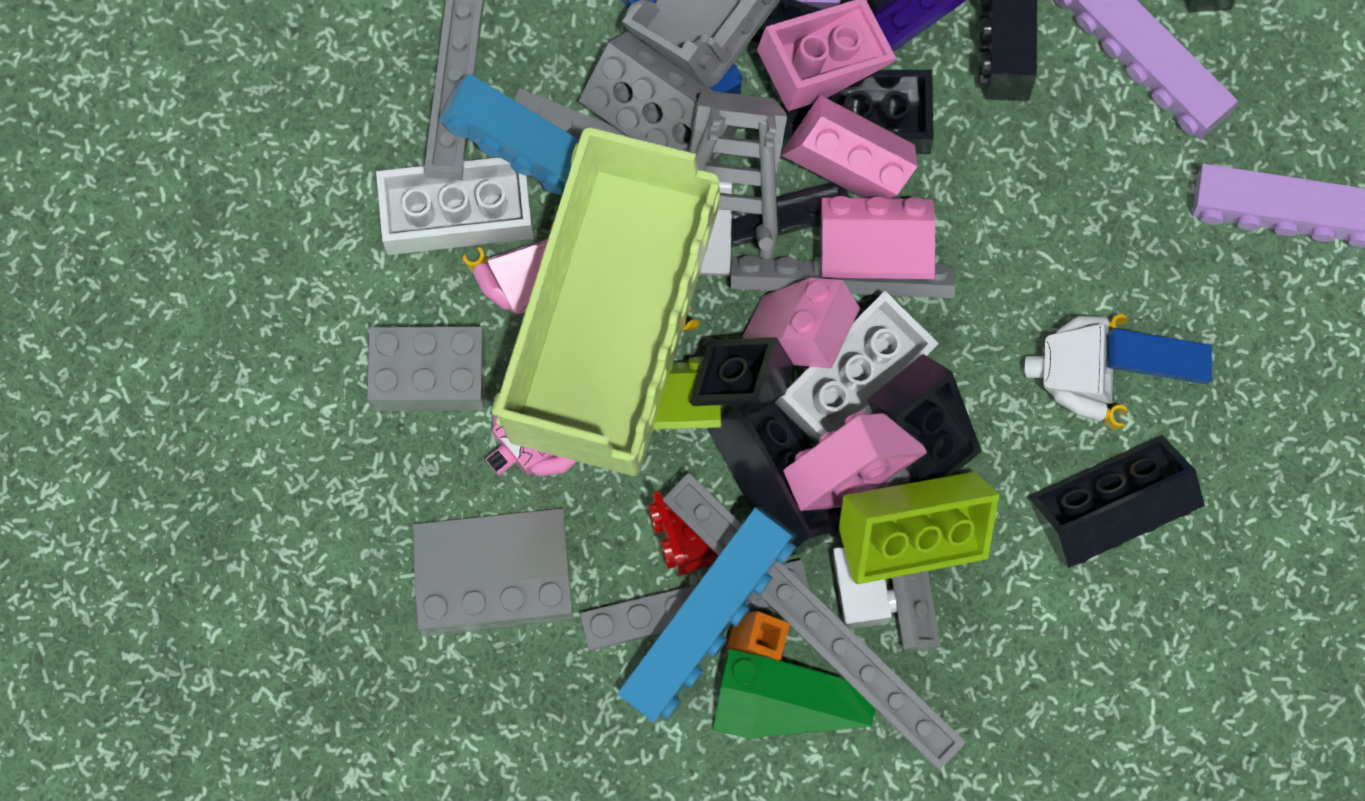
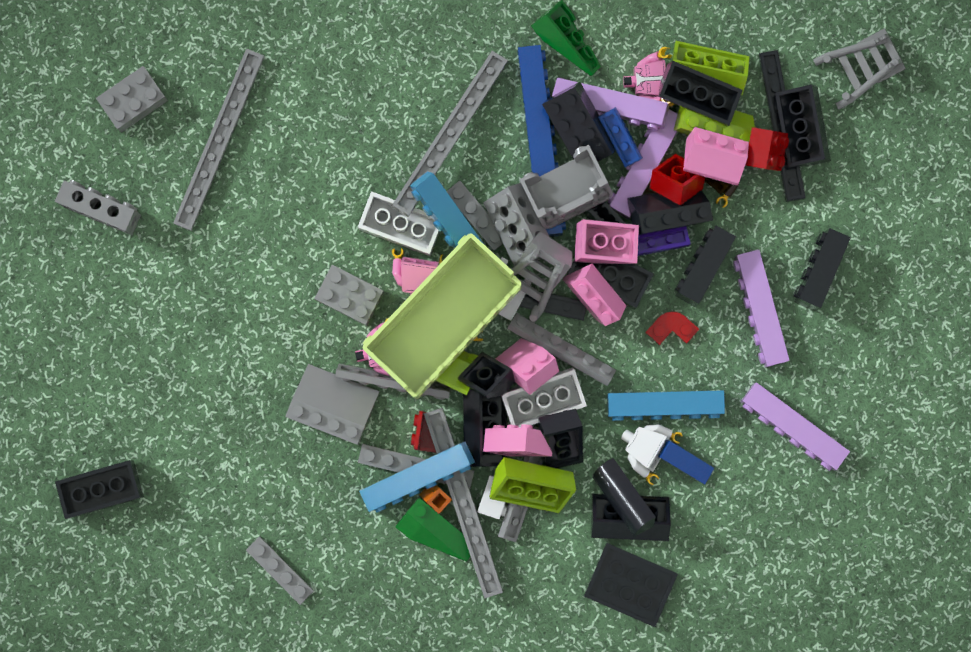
camera: 25 degrees right, 10 degrees up
(67, 226) = (218, 140): none -> light grey plate
(527, 492) = (368, 376): none -> light grey plate
(877, 238) = (586, 341): bright pink slope -> none
(1006, 142) = (672, 322): none -> red plate
(1070, 279) = (665, 404): none -> dark azure brick
(1089, 465) = (624, 497): none -> black brick
(1181, 617) = (630, 585): none -> black plate

